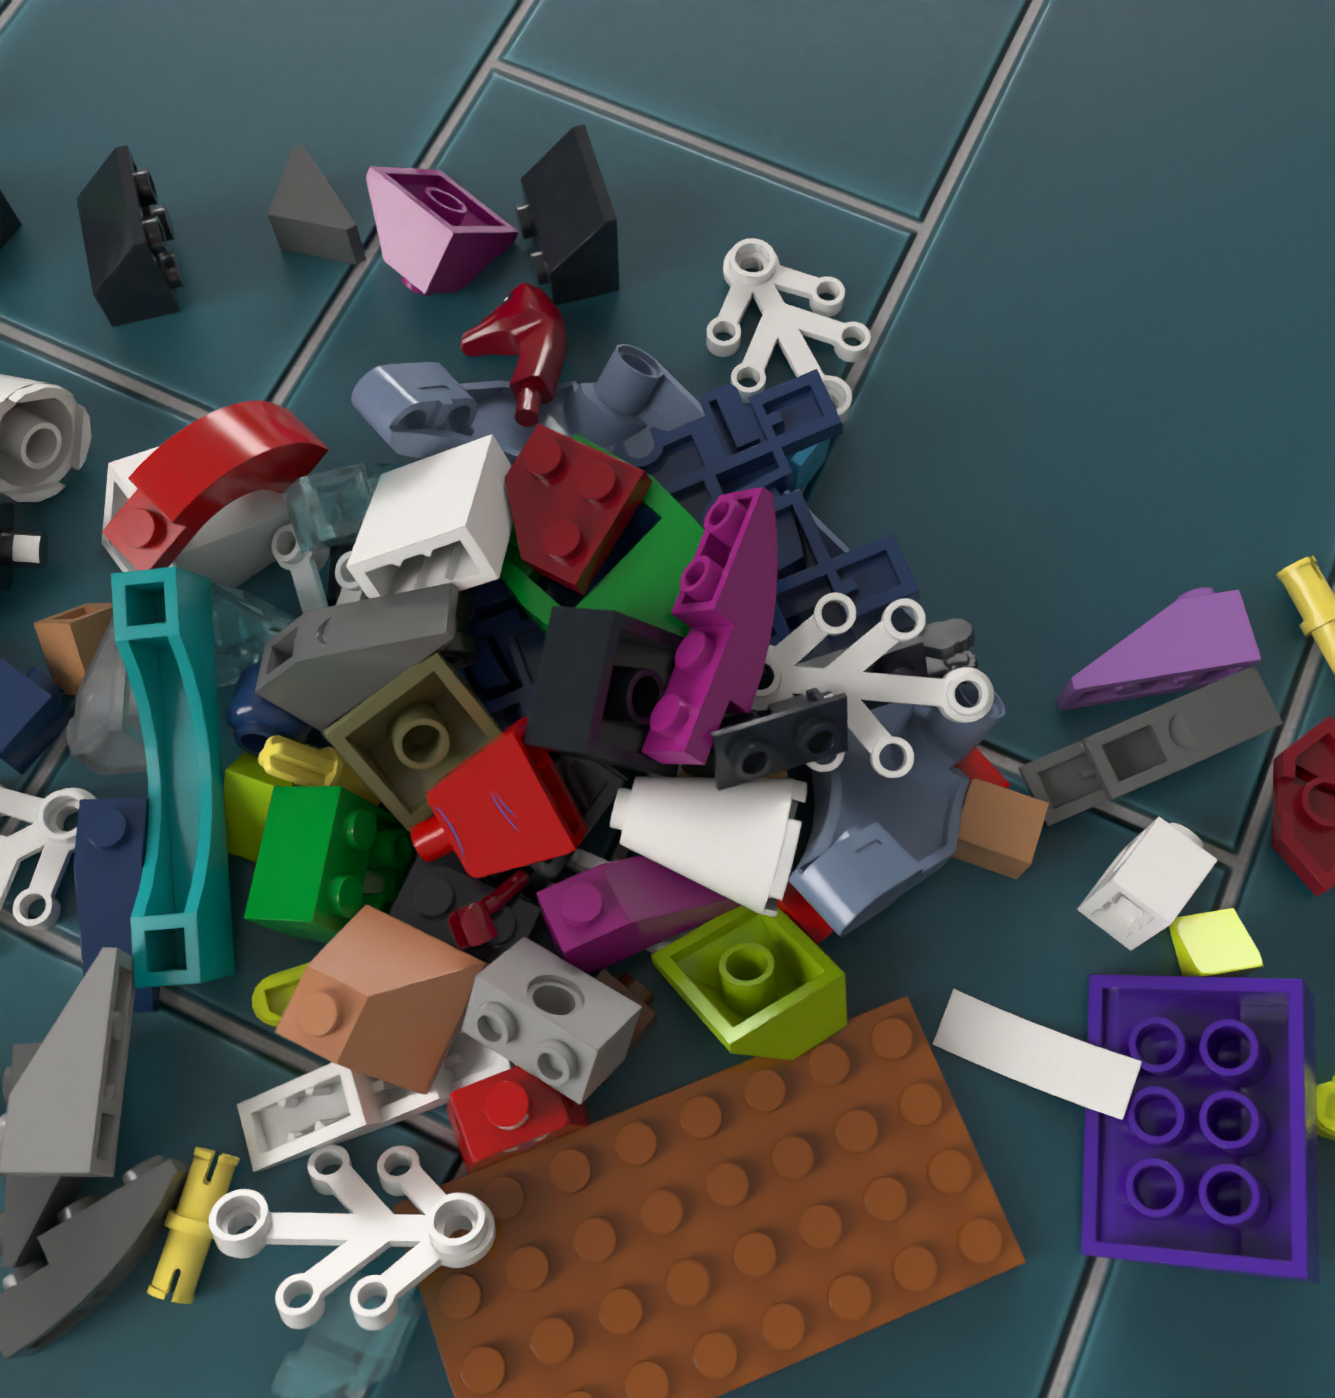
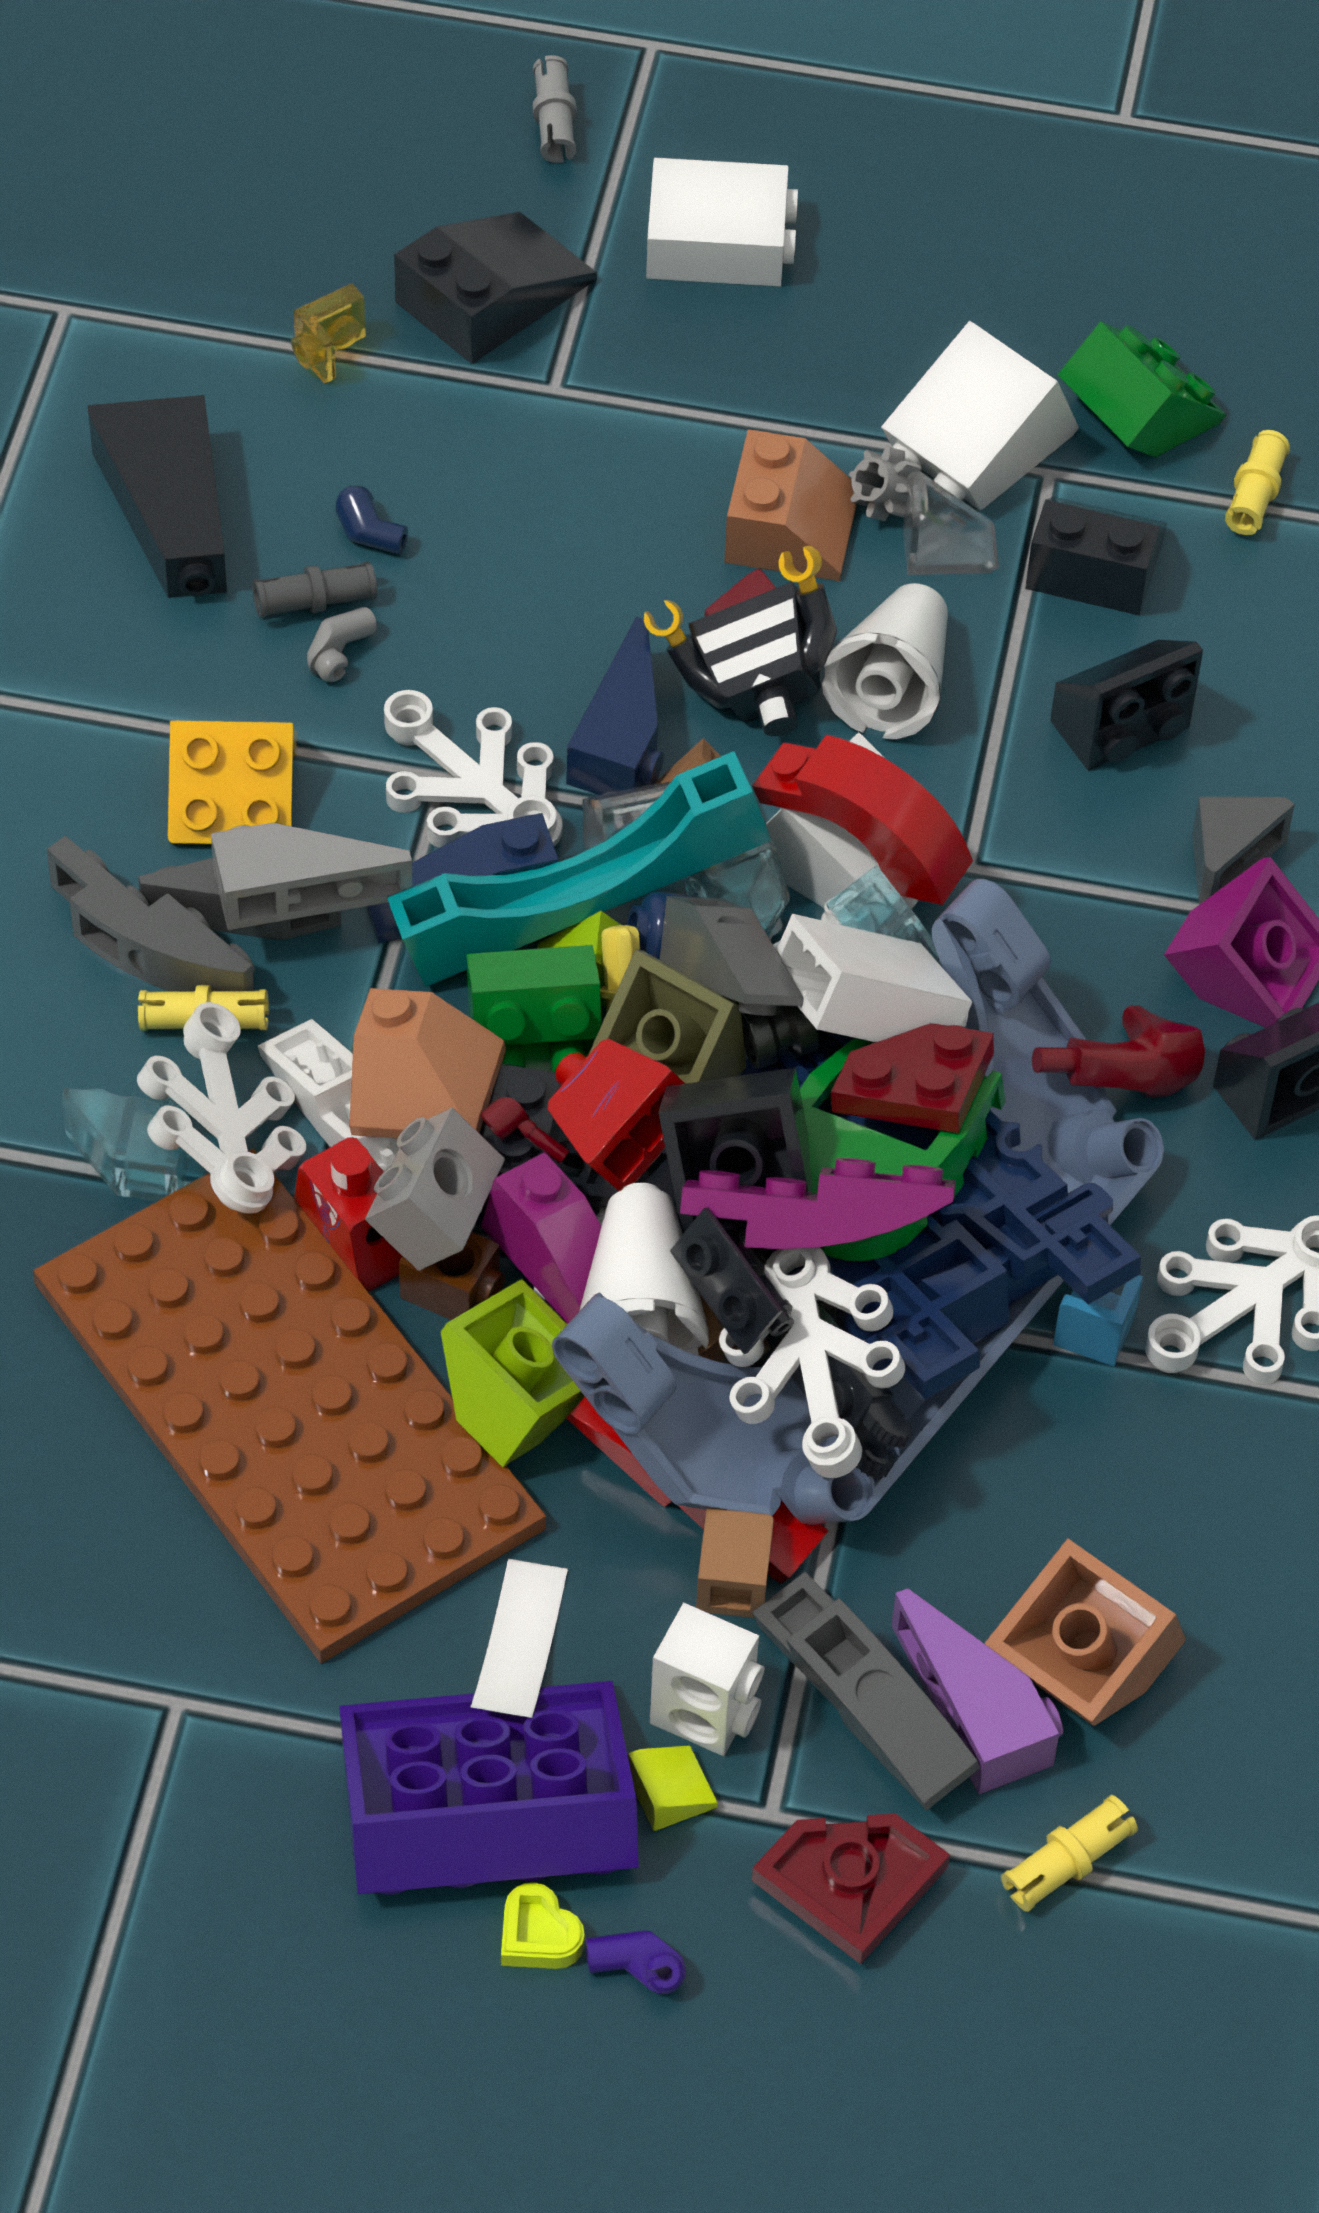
camera: 75 degrees right, 15 degrees down
(1135, 545) = (1088, 1635): none -> nougat slope

